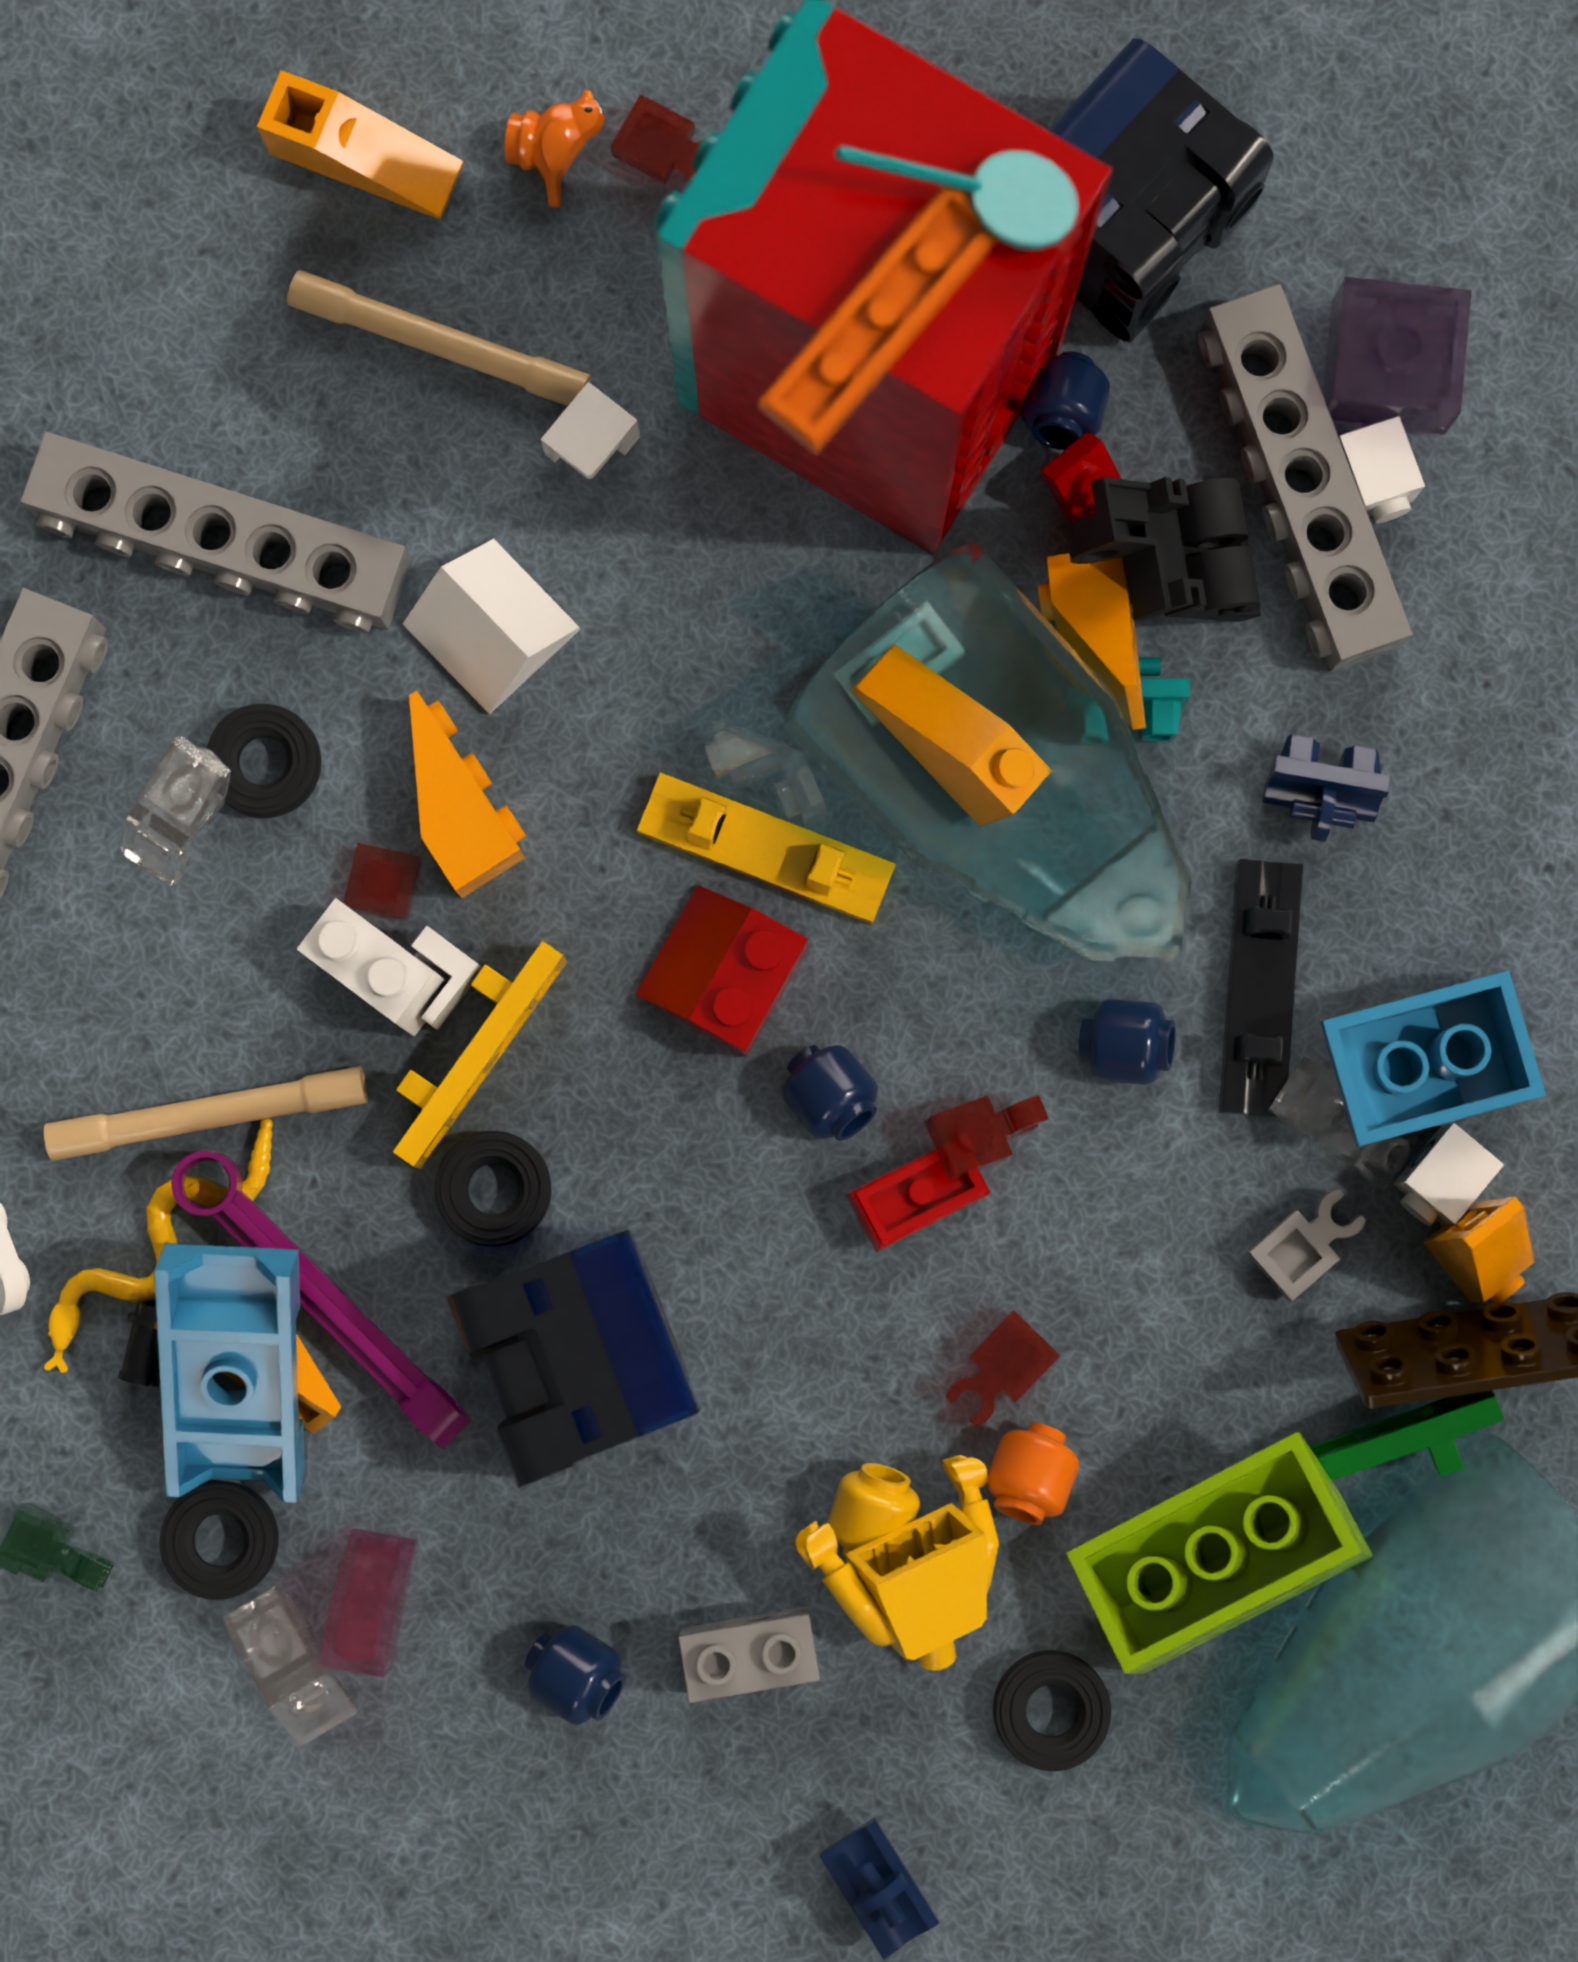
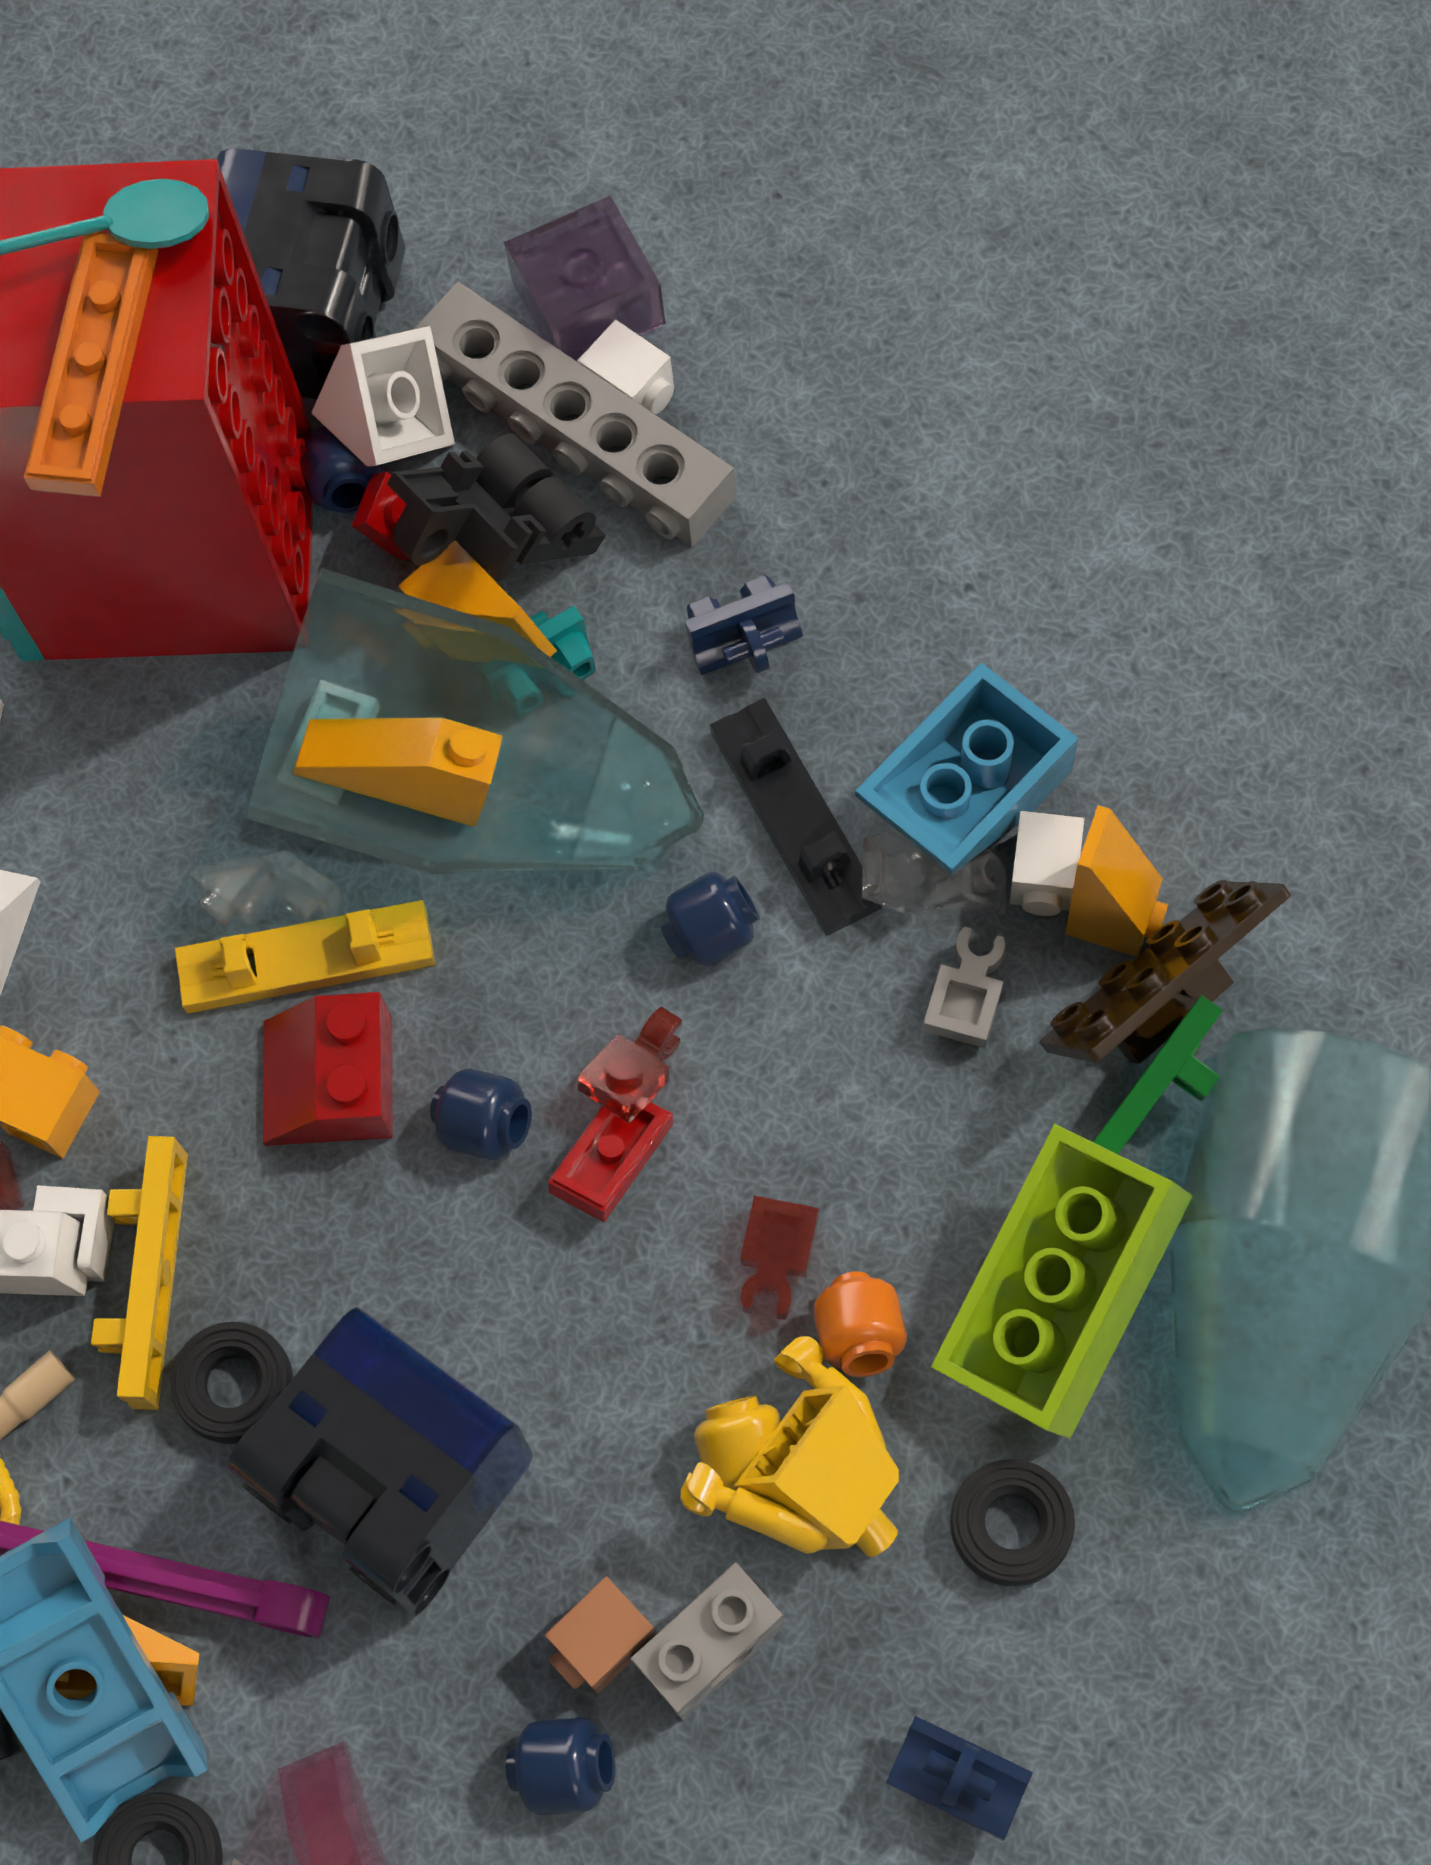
camera: 25 degrees left, 15 degrees down
(664, 1594) = (598, 1637): none -> nougat brick
(1144, 369) = (386, 398): none -> white slope

